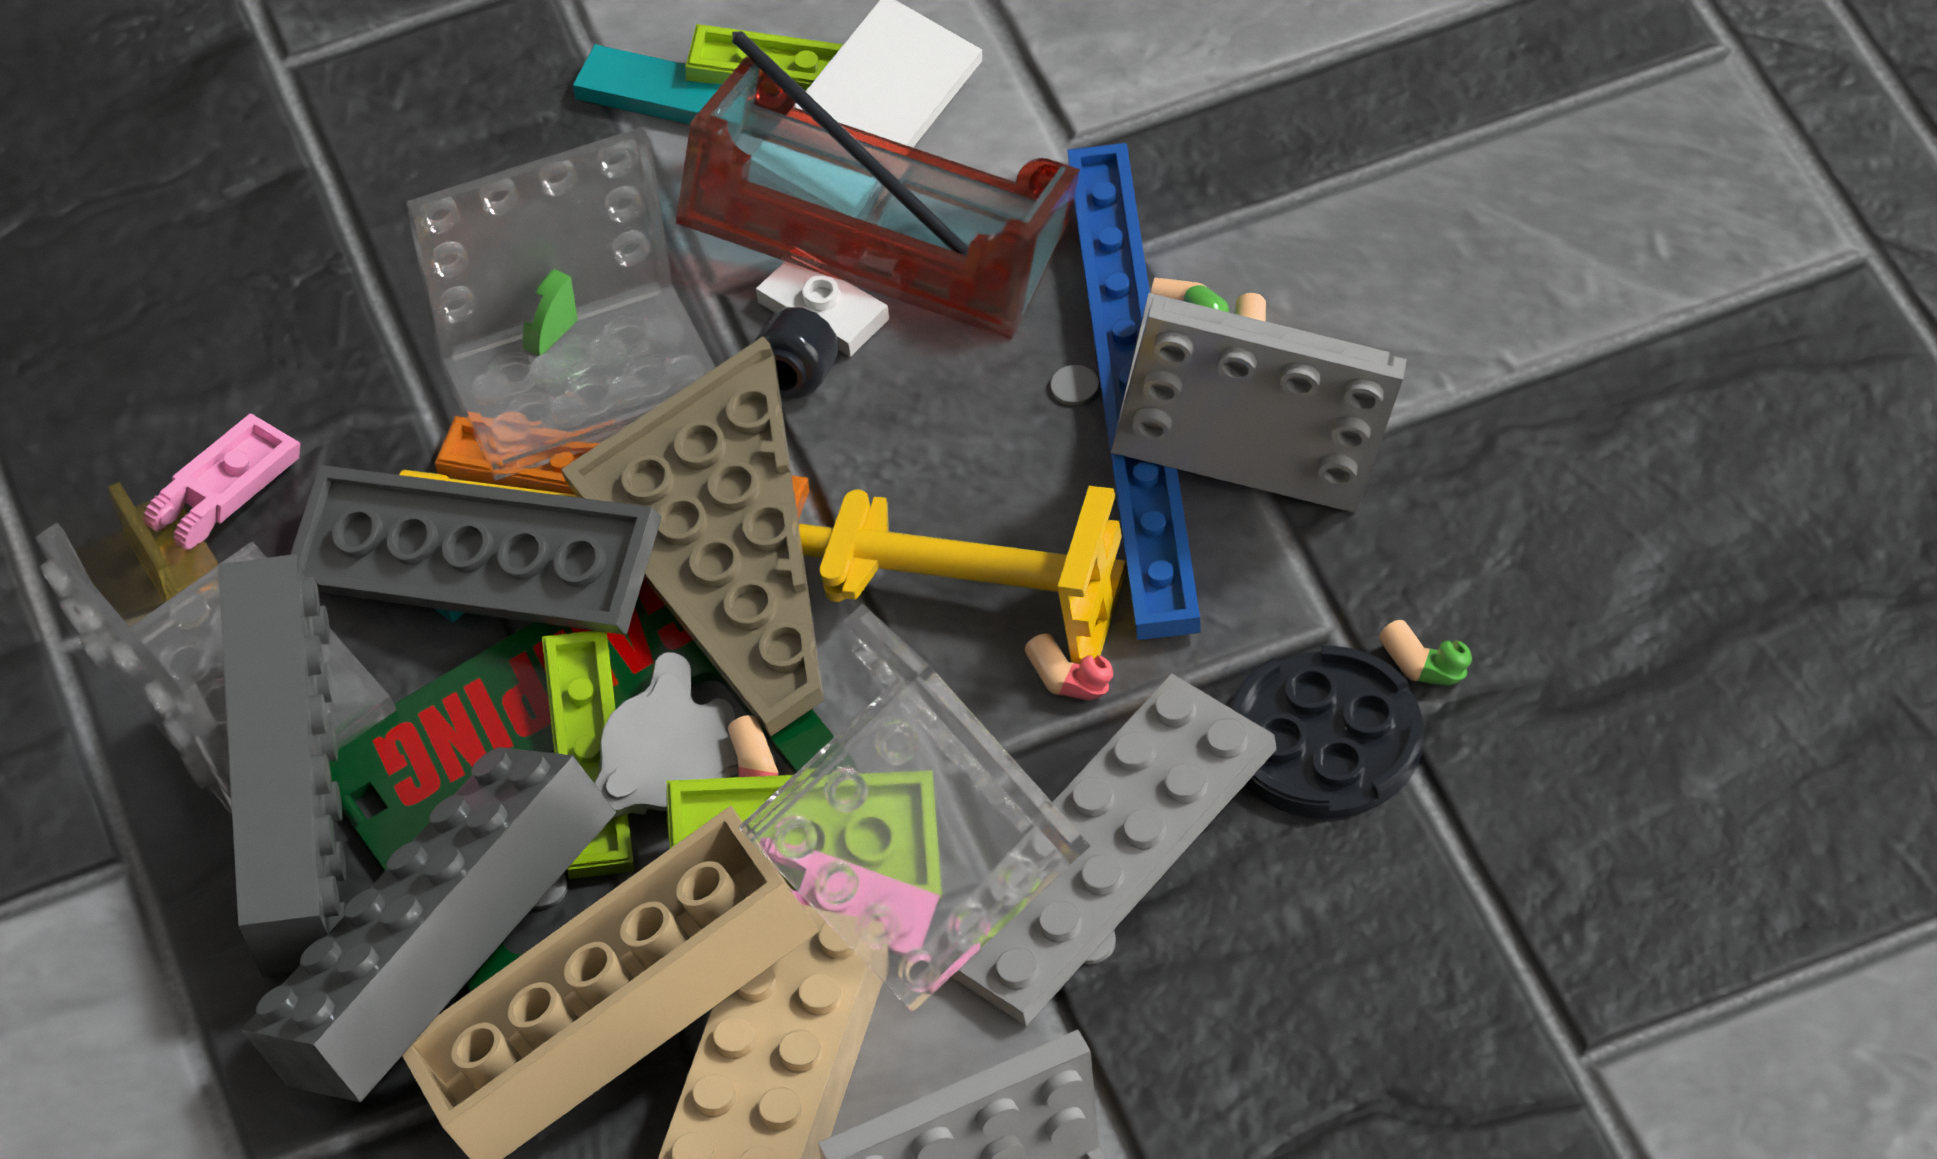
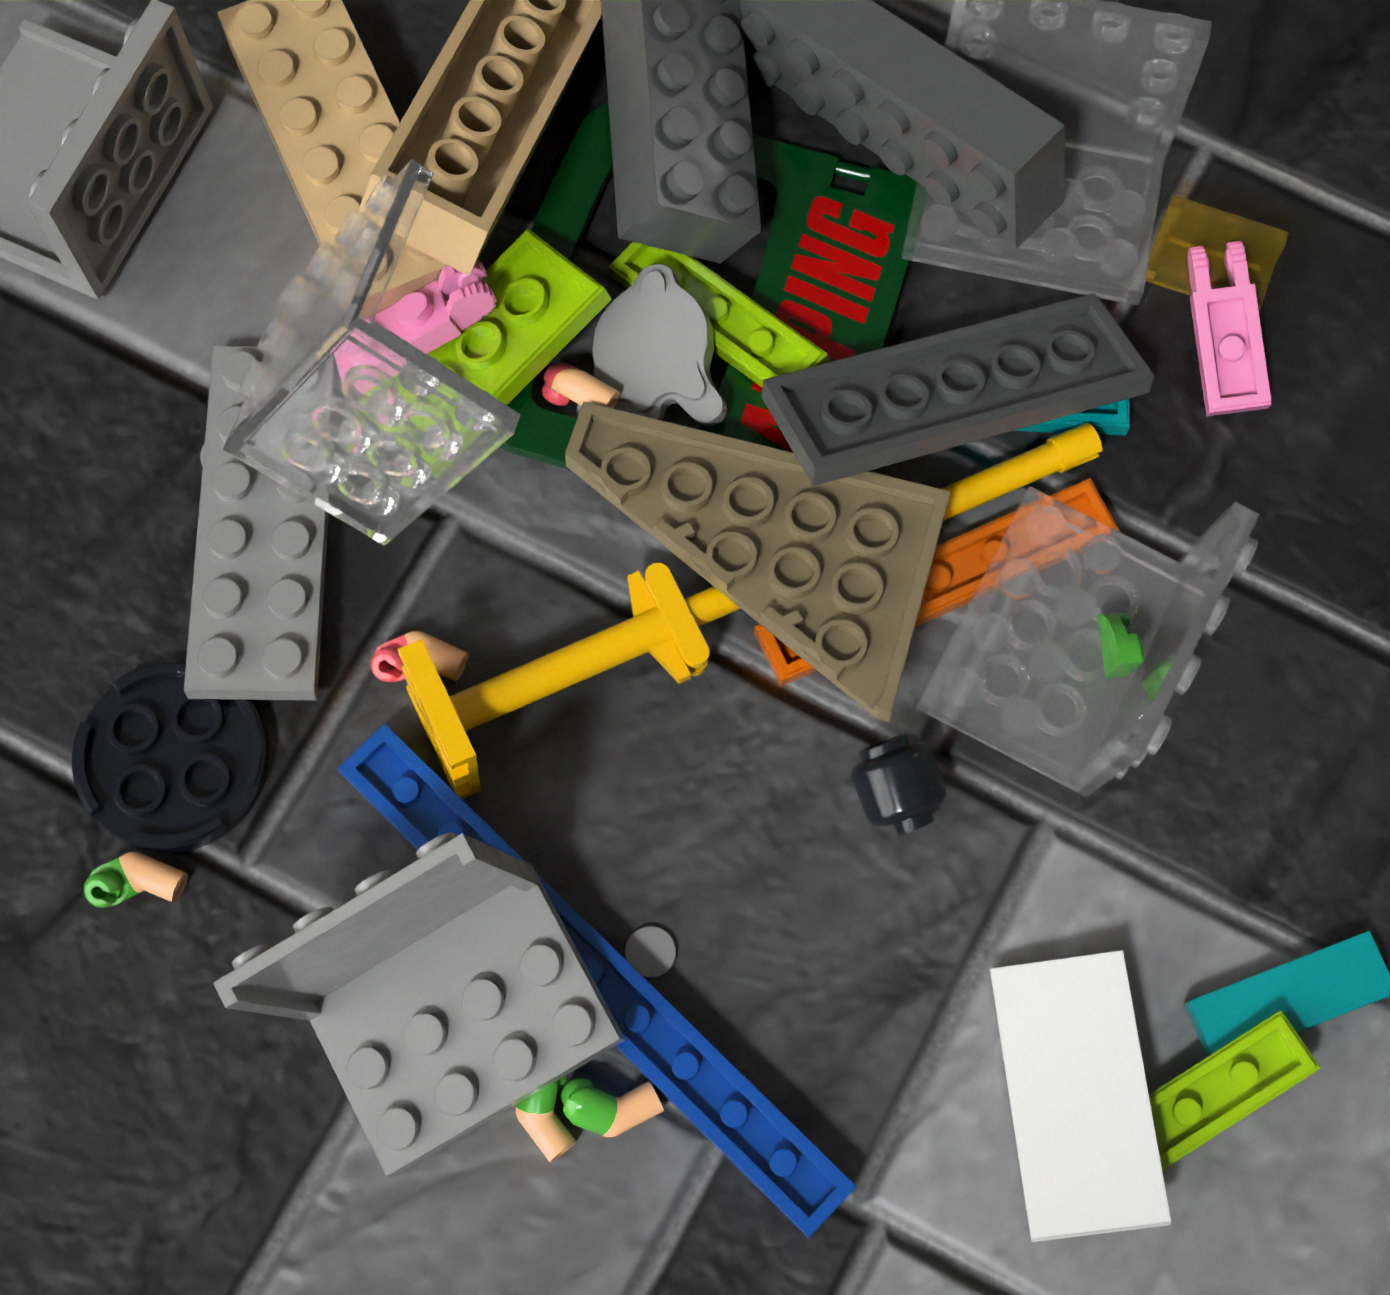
camera: 135 degrees right, 20 degrees up
(790, 191) = (969, 982): clear red windscreen -> none
(848, 309) = (932, 867): white plate -> none
(849, 143) = (1036, 1003): black axle -> none

